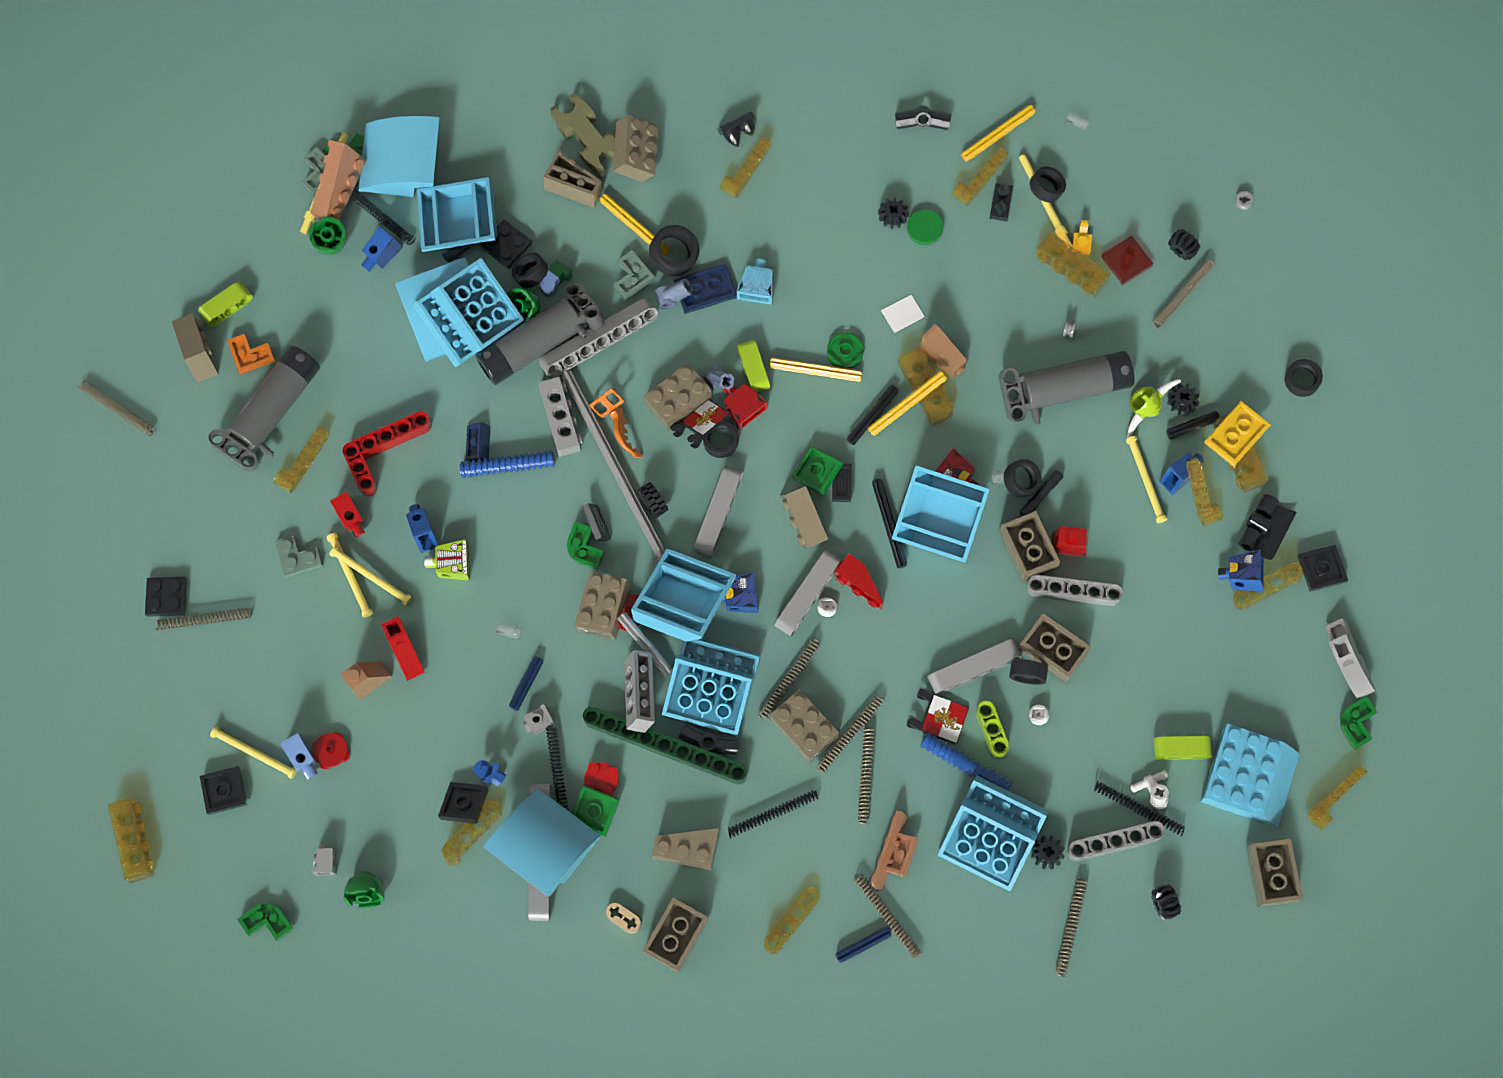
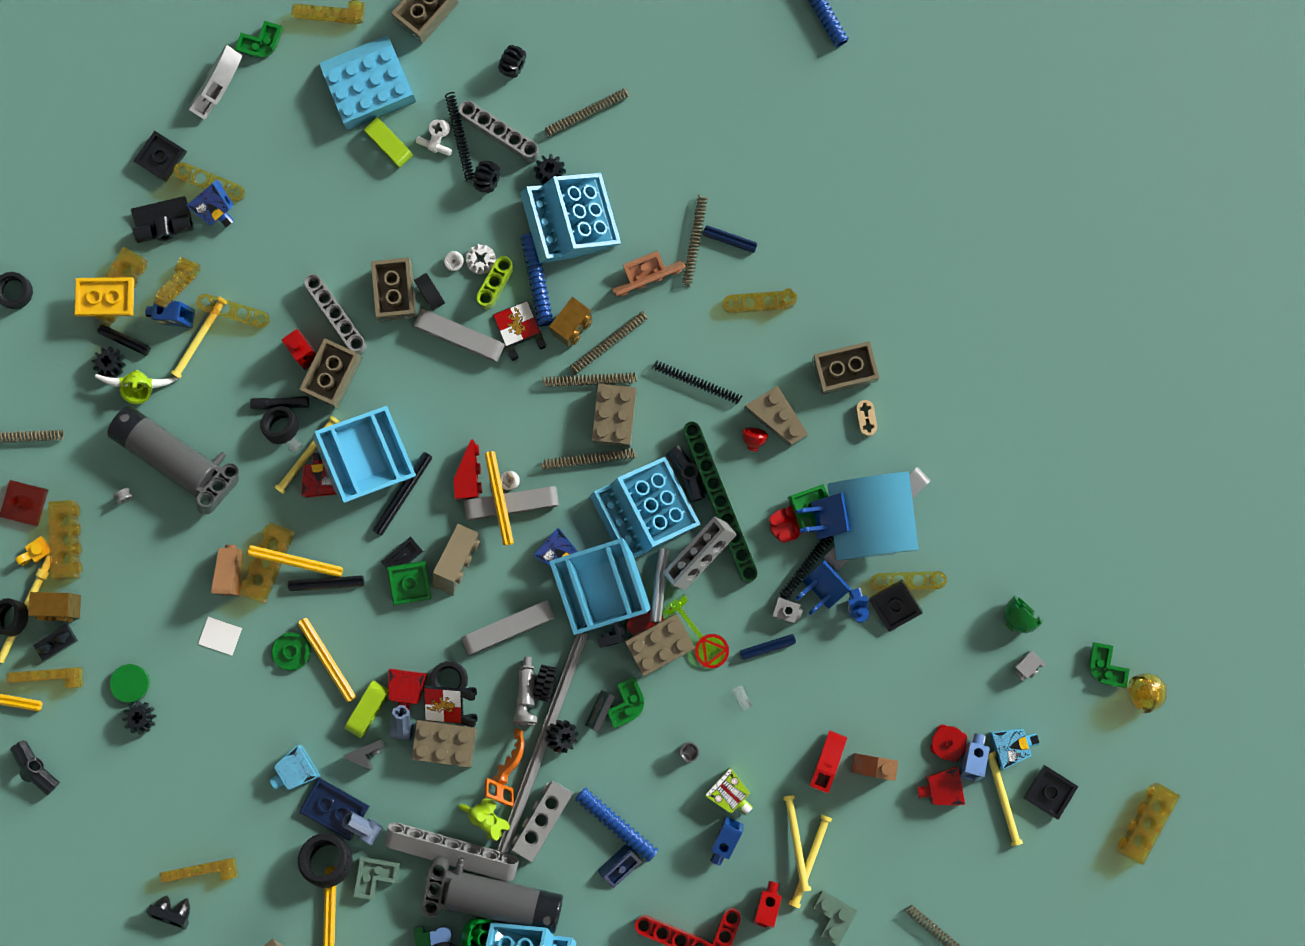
camera: 130 degrees left, 10 degrees up
(217, 932) = (1148, 692): none -> clear yellow cylinder
(282, 793) = (1012, 746): none -> torso
(303, 714) = (943, 788): none -> red torso
(504, 555) = (689, 752): none -> flat silver wheel
(528, 766) = (826, 585): none -> blue plate
(564, 641) = (710, 649): none -> clear neon green piece
(573, 811) = (829, 516): none -> blue plate
(600, 378) = (484, 817): none -> lime animal
(604, 479) = (563, 743): none -> black gear
(639, 574) = (609, 639): none -> black bracket
(655, 476) = (525, 694): none -> light grey piece
(689, 816) = (754, 438): none -> red brick
(723, 336) = (361, 756): none -> dark grey slope
(819, 583) = (499, 499): none -> yellow axle
(906, 756) = (571, 322): none -> pearl gold brick
(974, 441) = (302, 460): none -> light yellow bar
(1015, 743) = (480, 268): none -> white gear
(1027, 218) = (50, 605): none -> pearl gold brick
(1085, 796) = (486, 176): none -> black gear
(1146, 520) = (234, 307): none -> clear yellow beam

